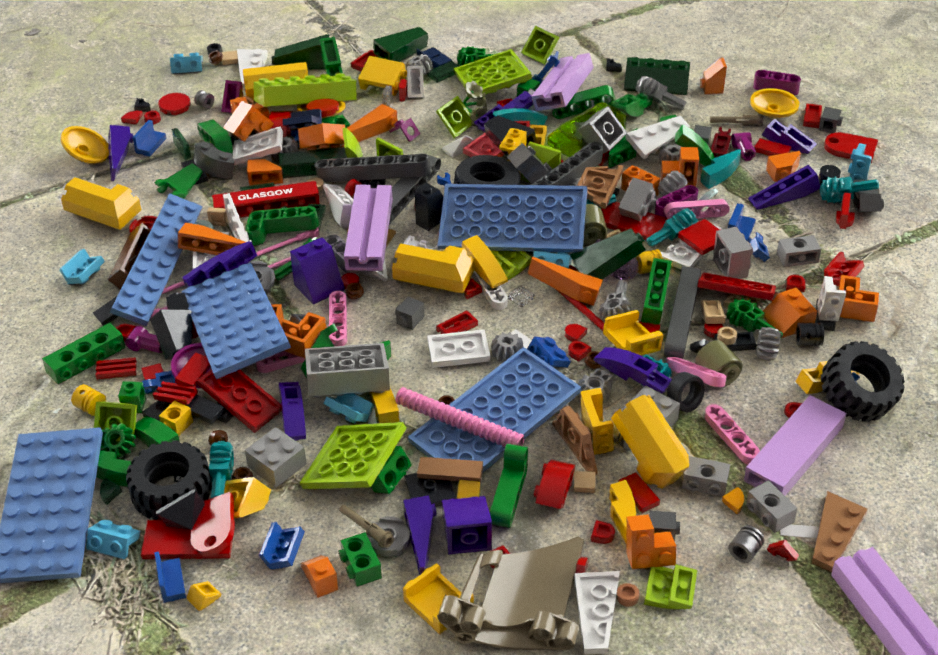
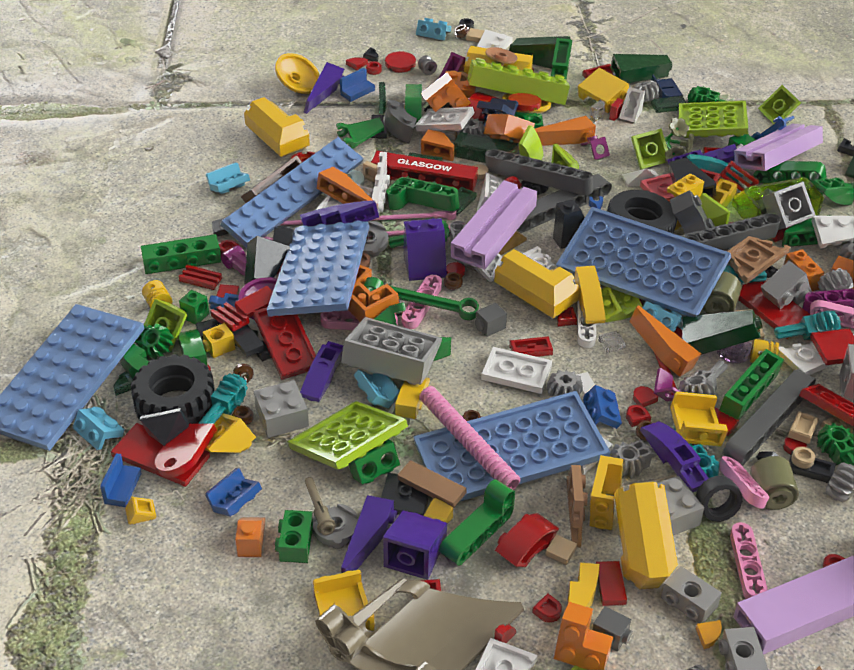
camera: 25 degrees right, 0 degrees up
(279, 70) = (501, 55): none -> nougat dish
(348, 314) = (373, 283): none -> green piece
(556, 124) = (742, 171): none -> red tile
(587, 318) = (663, 385): none -> magenta bracket

